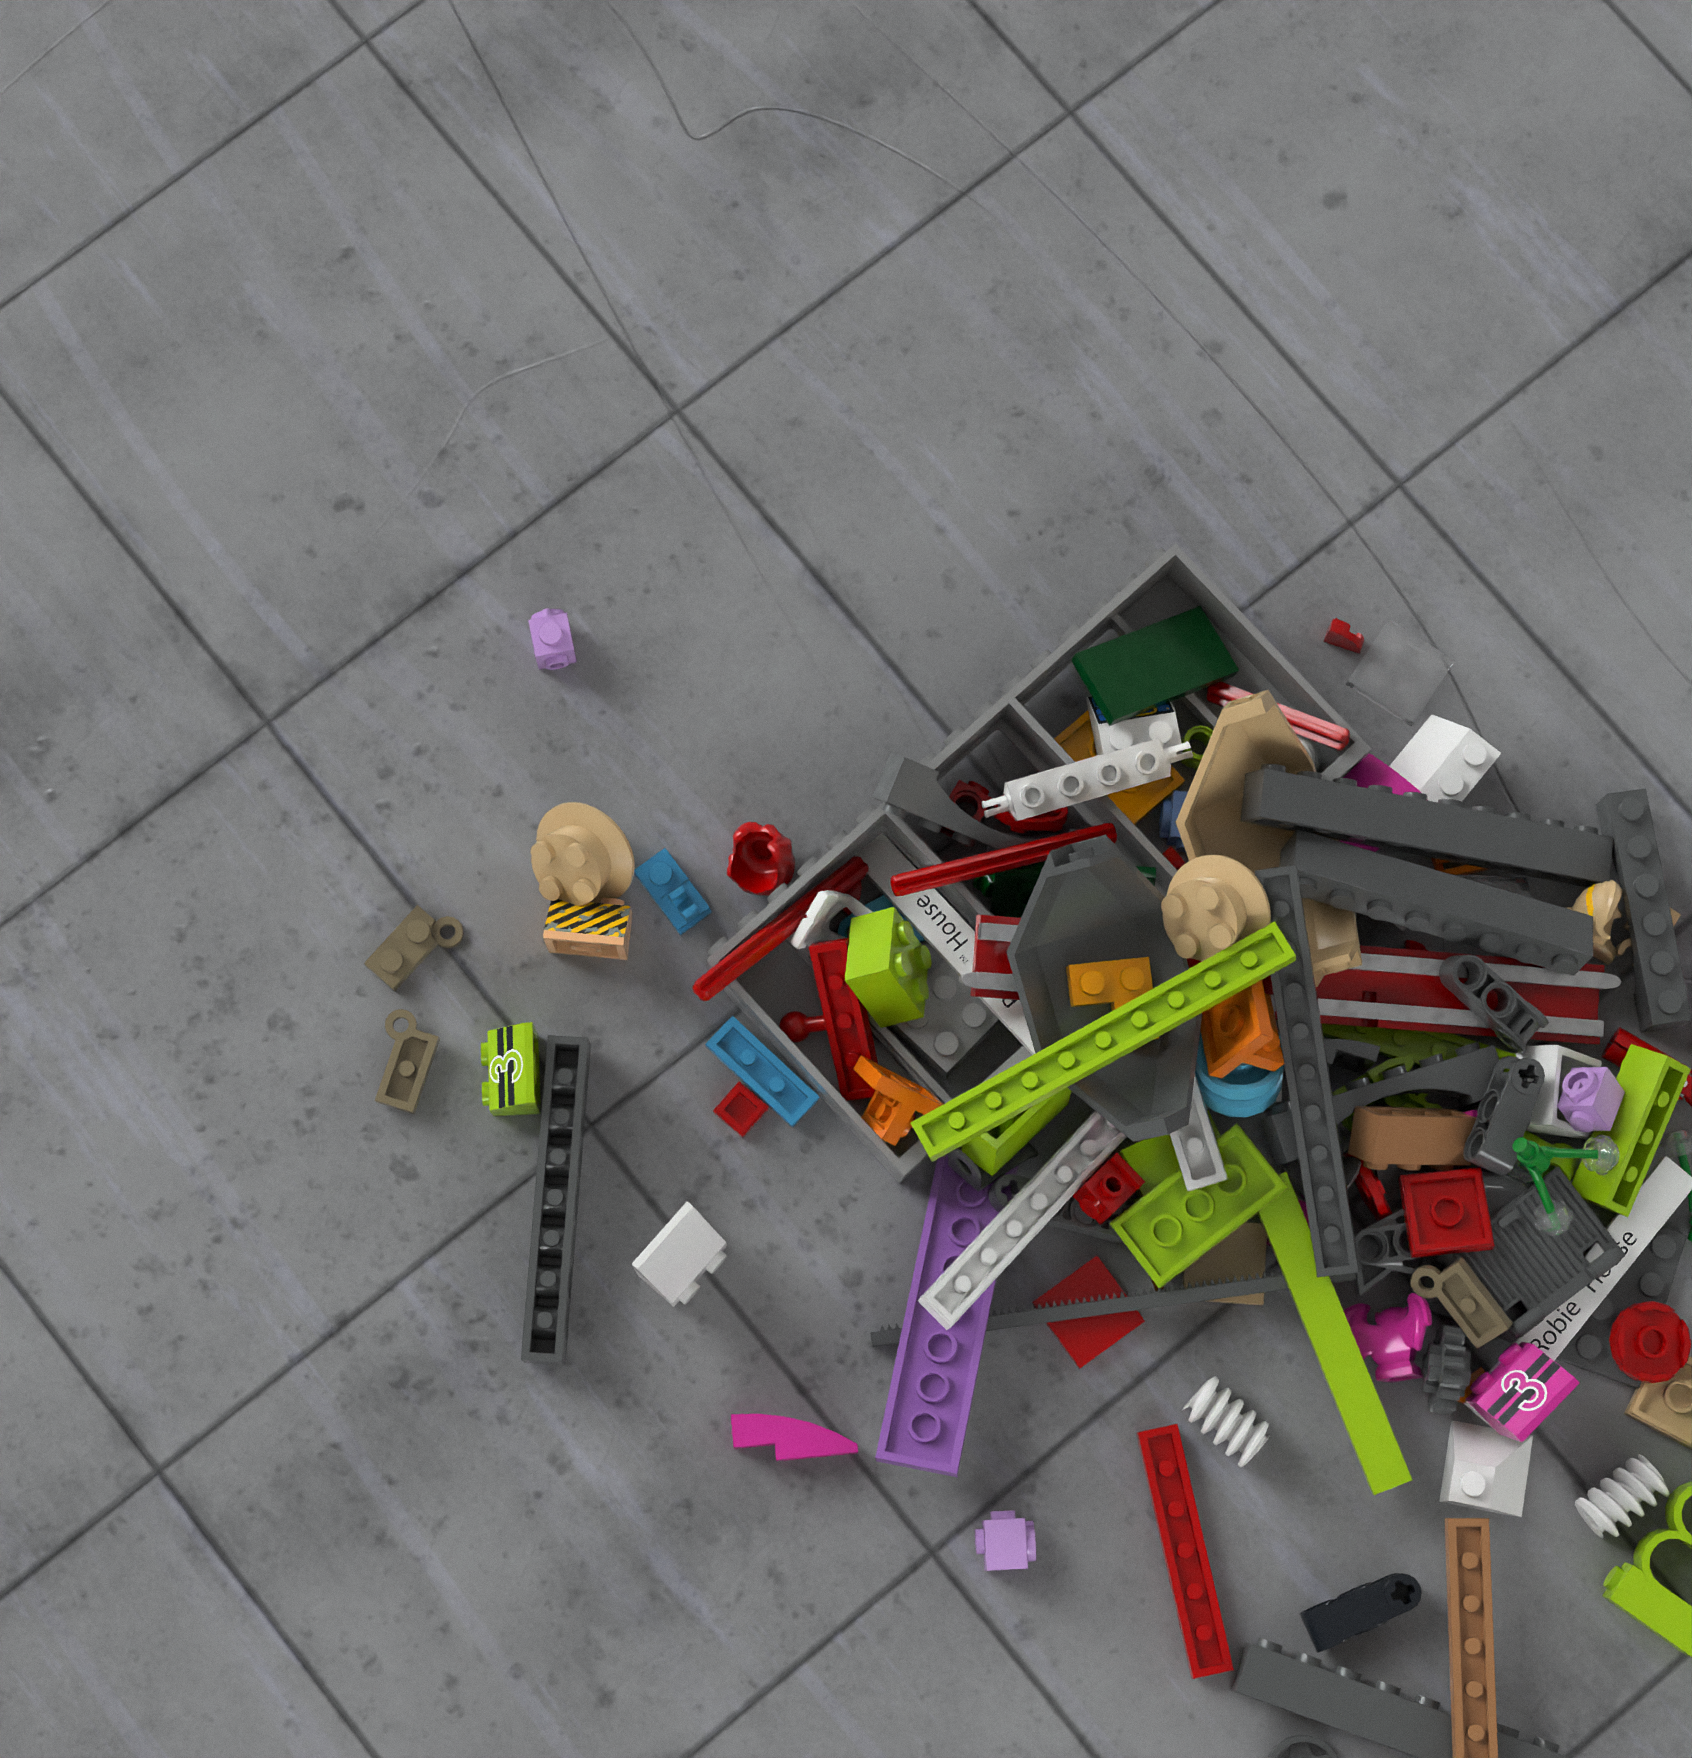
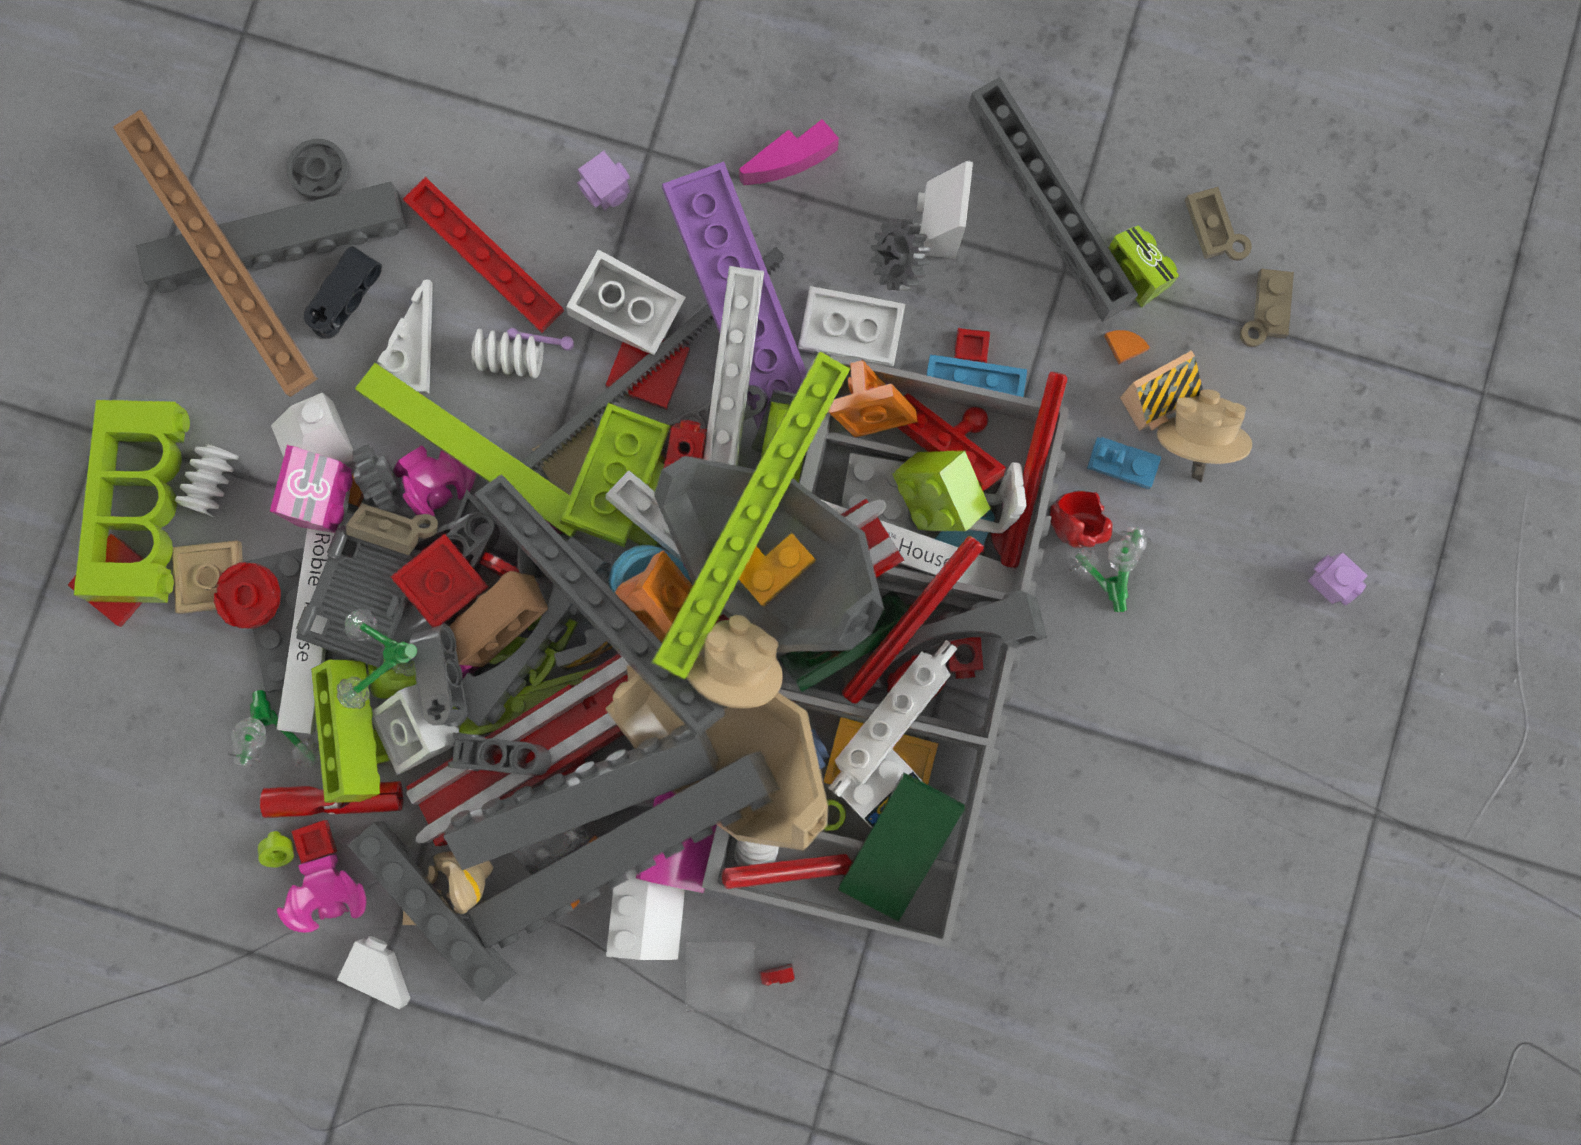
camera: 150 degrees right, 5 degrees up
(585, 1005) = (1125, 344): none -> orange tile
(753, 1245) = (900, 254): none -> dark grey gear
(756, 786) = (1122, 557): none -> clear plant
(849, 1213) = (851, 326): none -> white tile
(1071, 1386) = (624, 303): none -> white slope
(1155, 1397) = (566, 342): none -> lavender hinge
(1327, 1498) = (410, 343): none -> white wing
(1590, 1098) = (384, 729): lavender brick -> none

